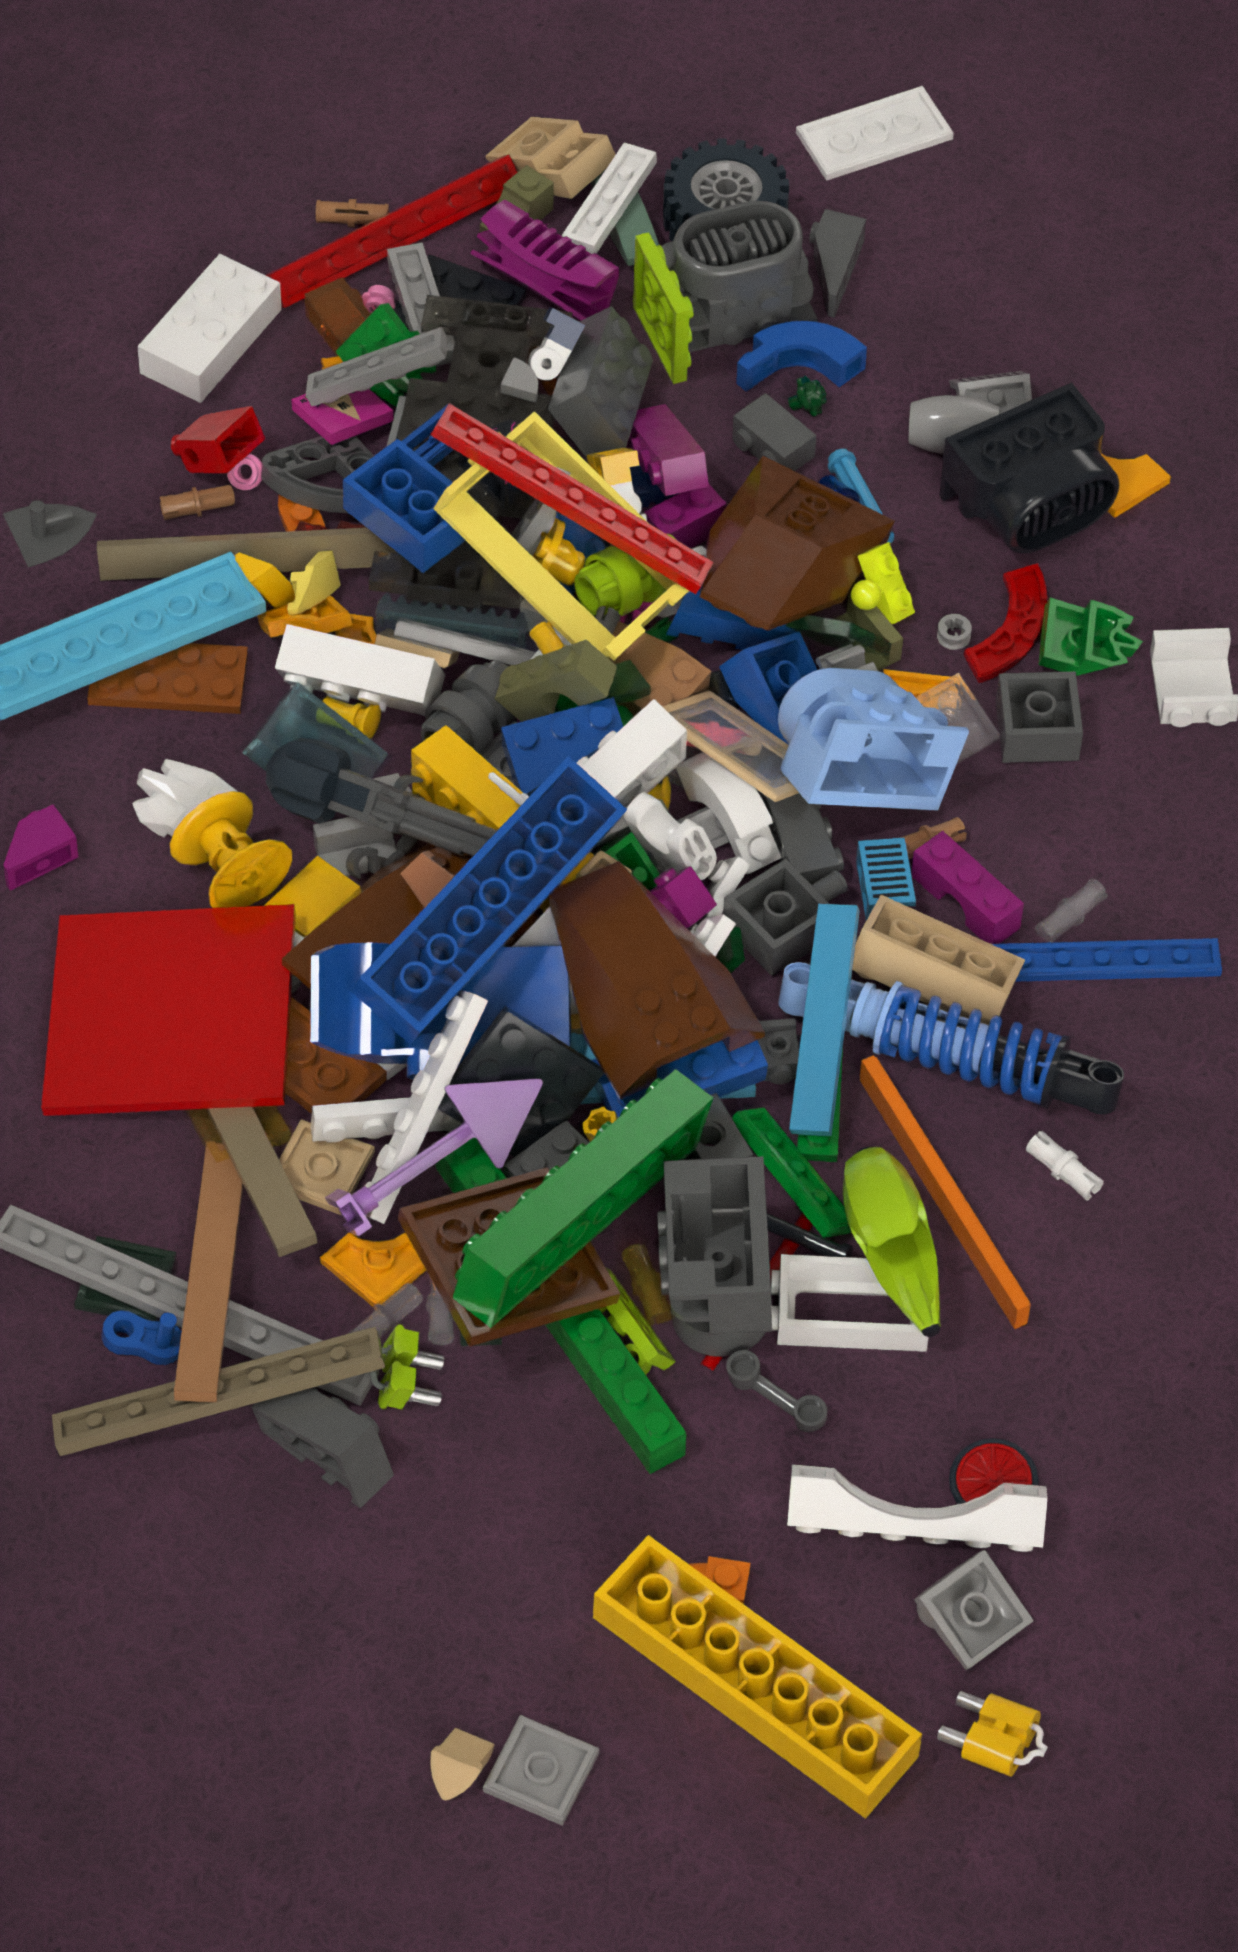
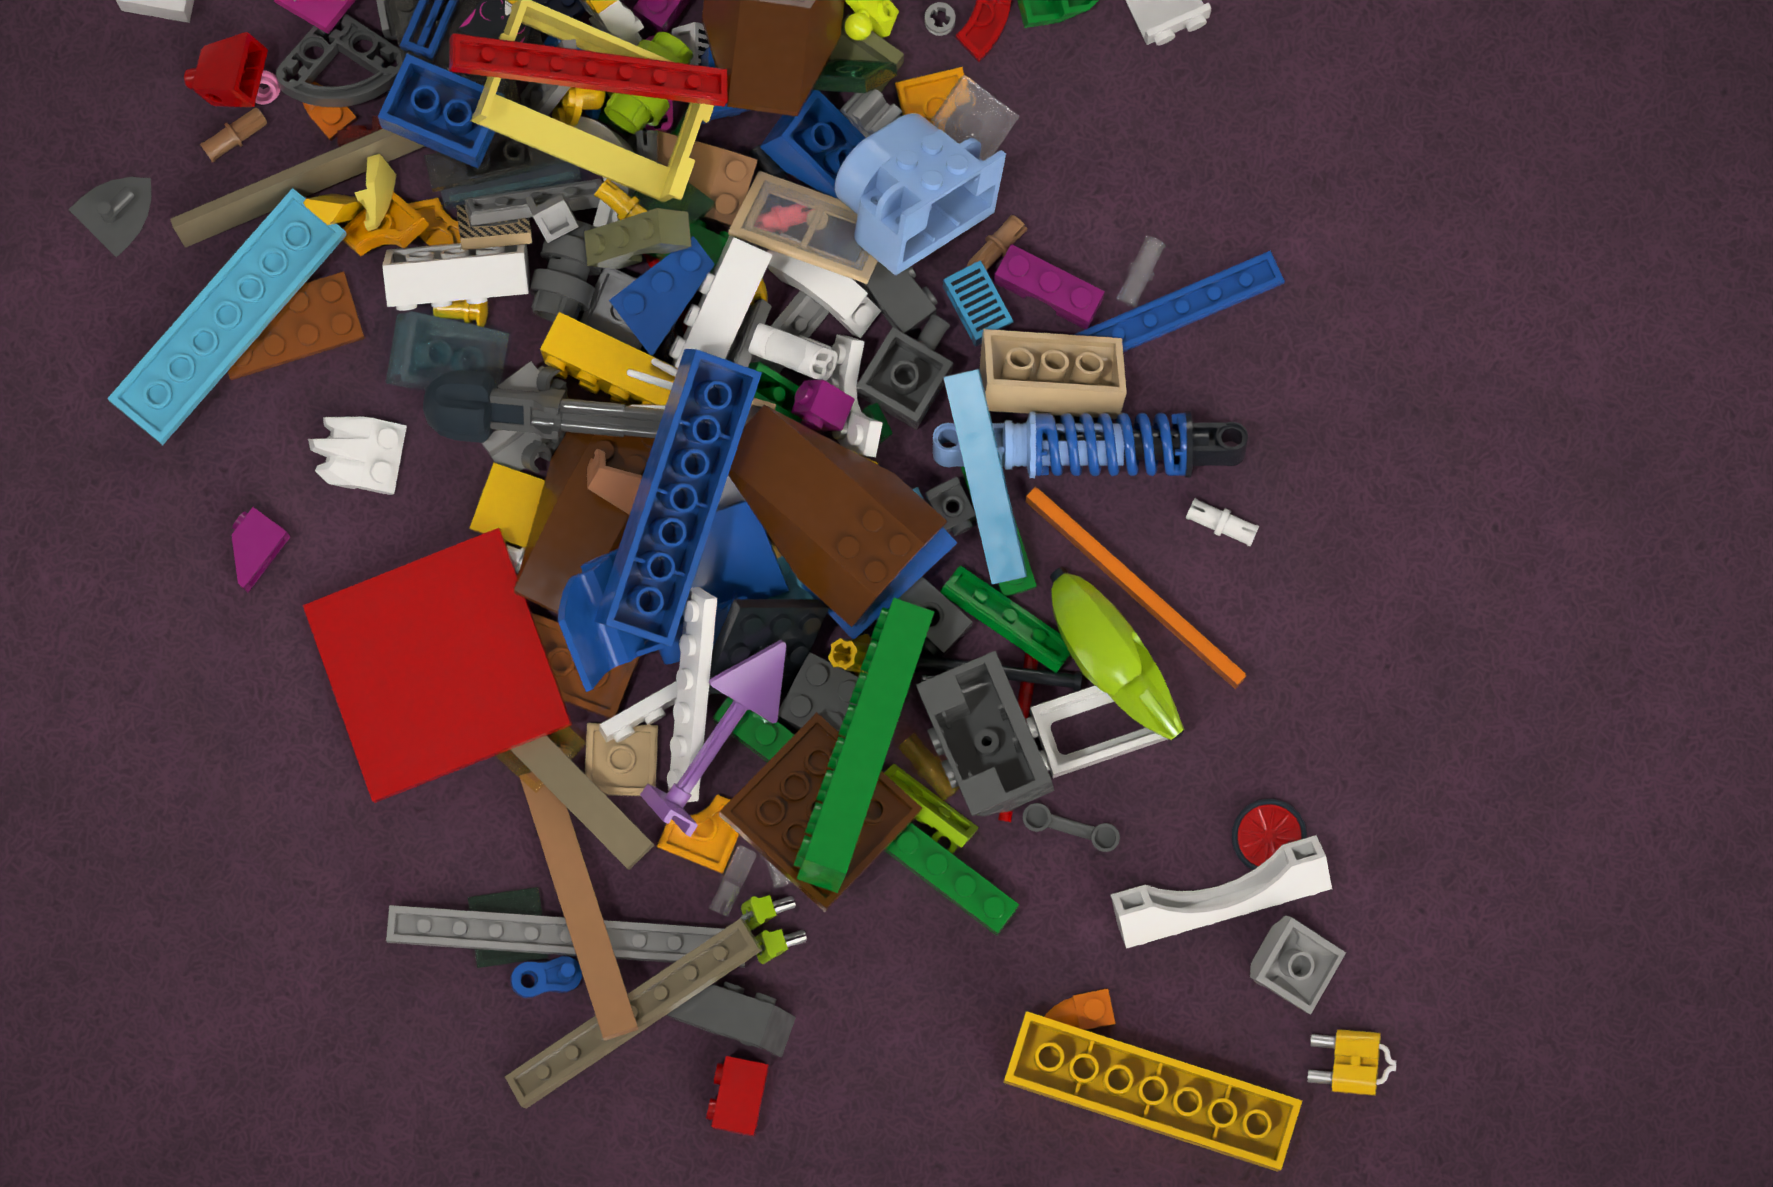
camera: 20 degrees left, 25 degrees up
(217, 835) = (425, 499): yellow piece -> none
(295, 1521) = (738, 1095): none -> red brick
(479, 645) = (553, 217): none -> light grey panel
(1039, 717) = (1047, 88): dark grey brick -> none

